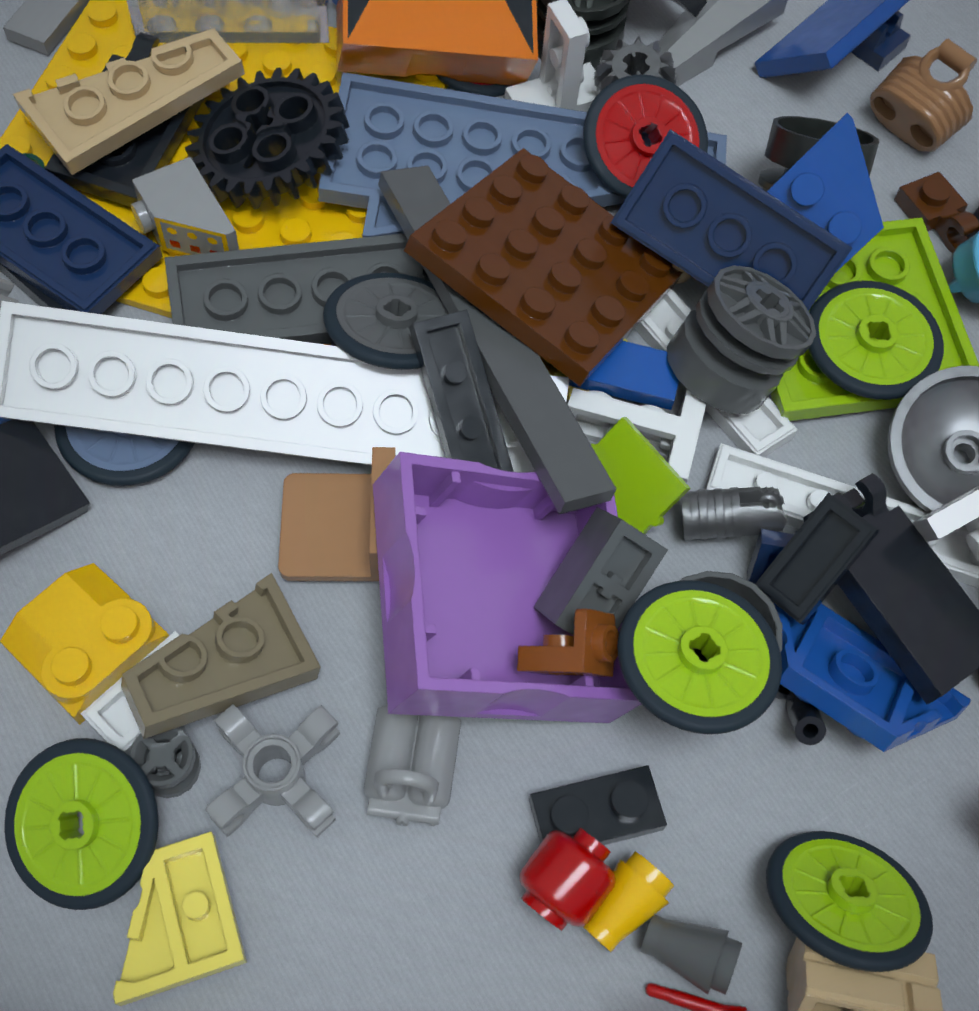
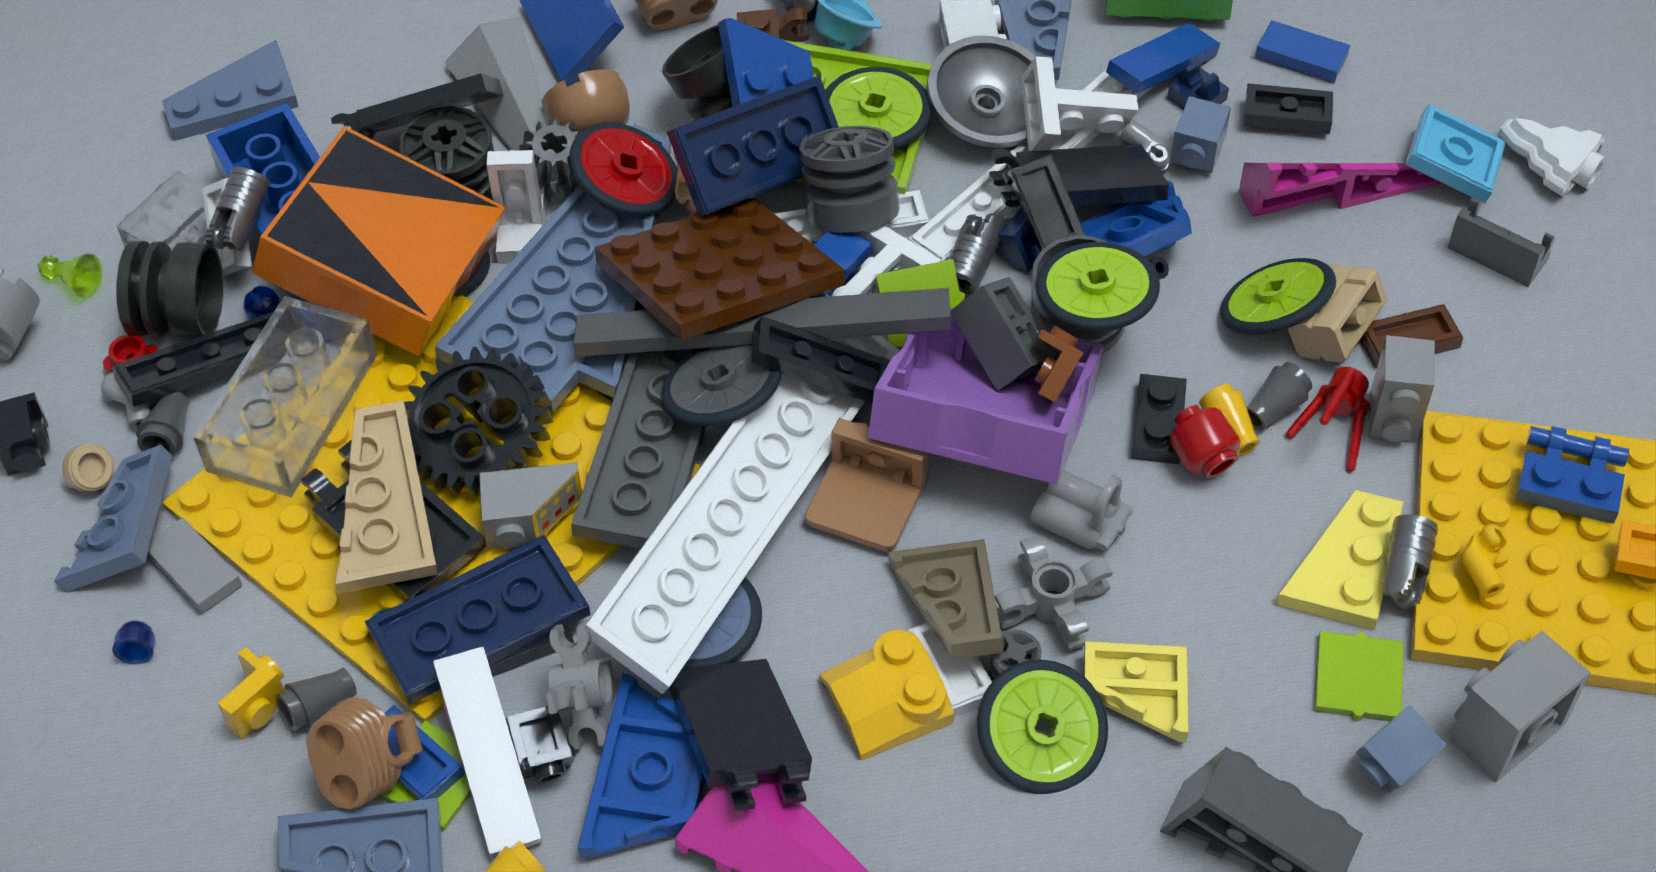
camera: 60 degrees left, 10 degrees down
(721, 85) = (593, 100): none -> medium nougat cylinder

